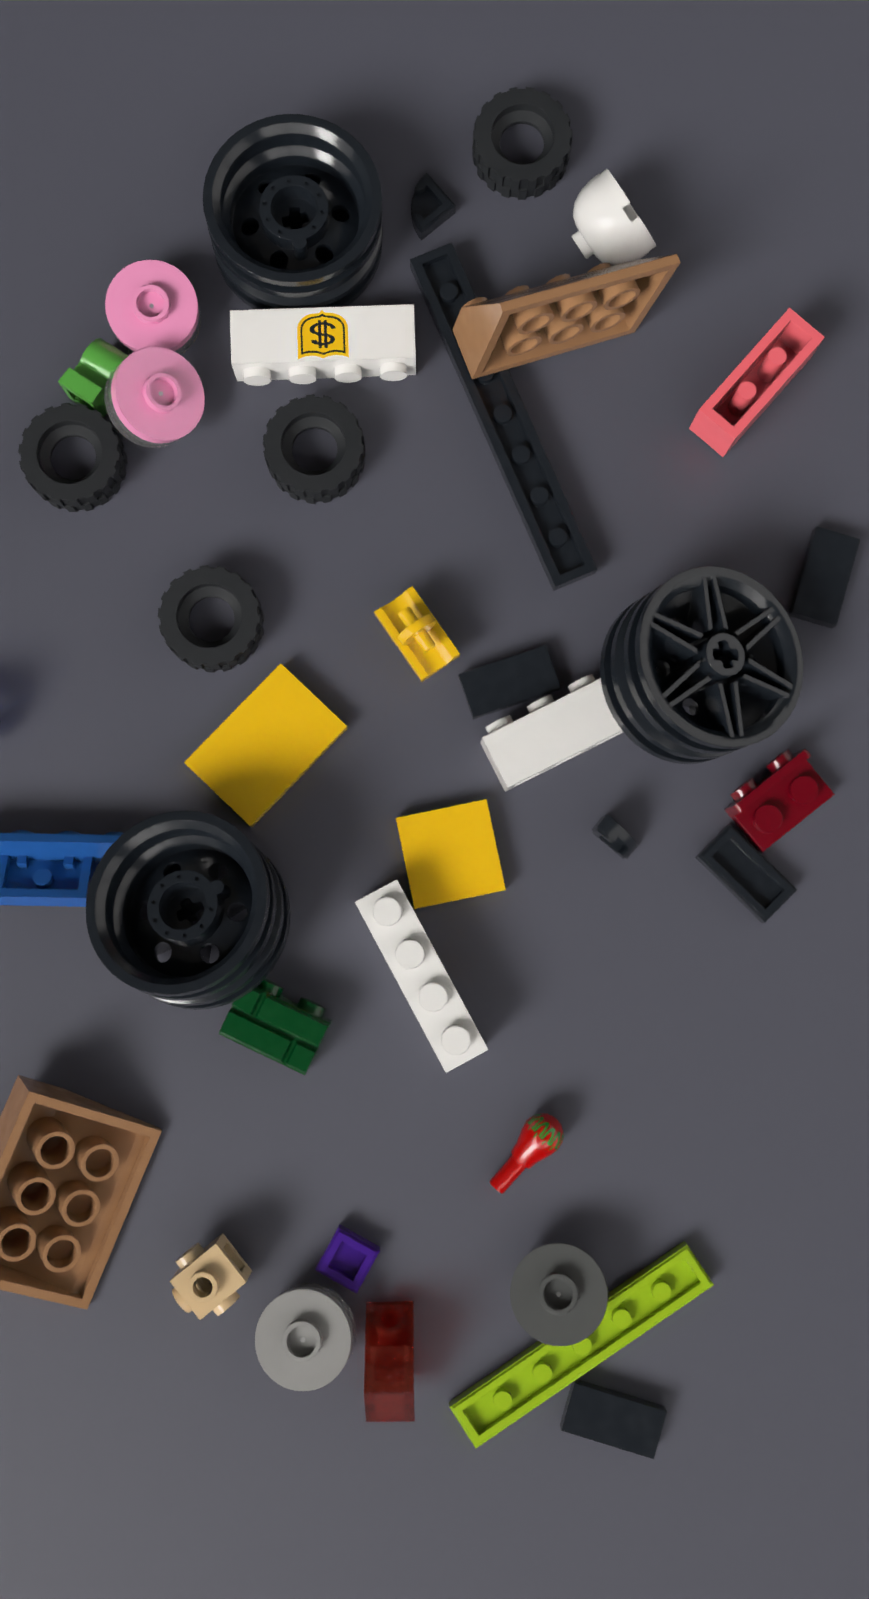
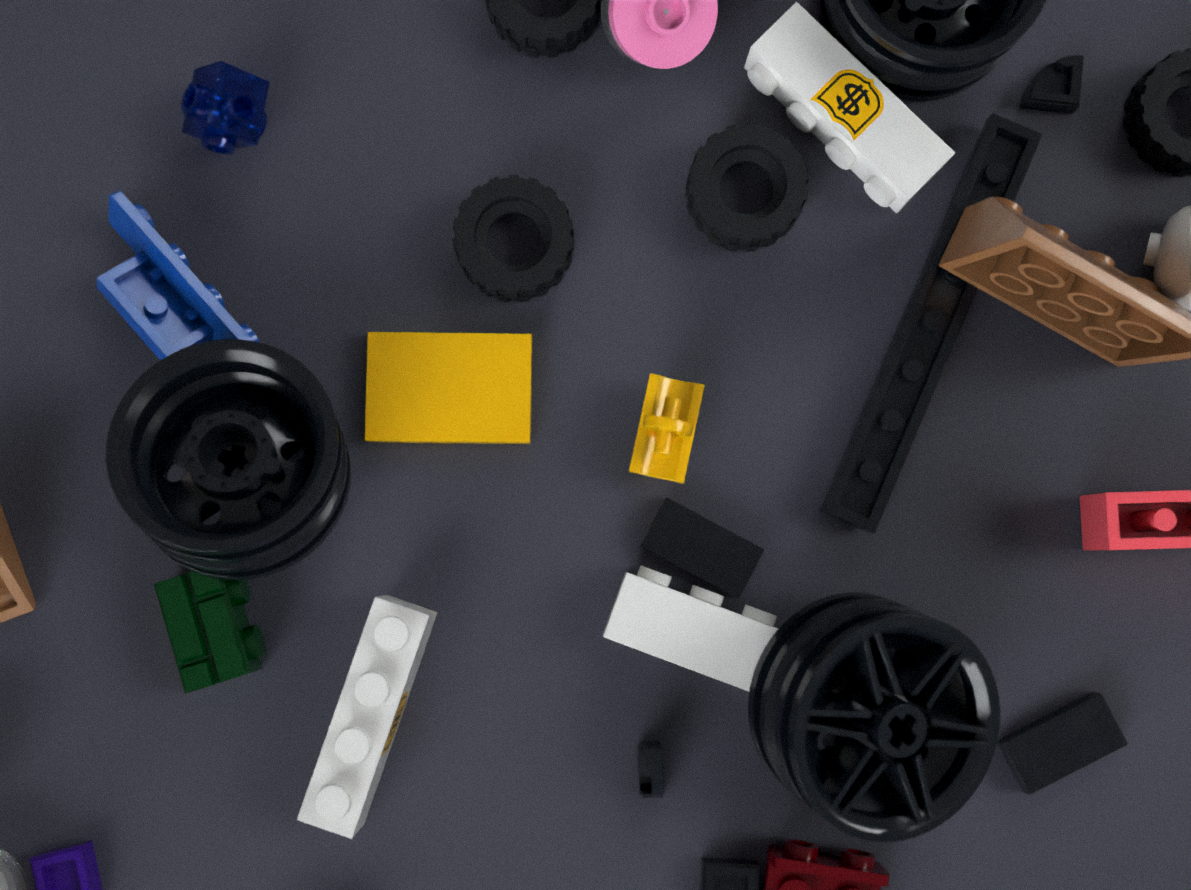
camera: 50 degrees right, 0 degrees up
(450, 854) = (501, 638): yellow tile -> none

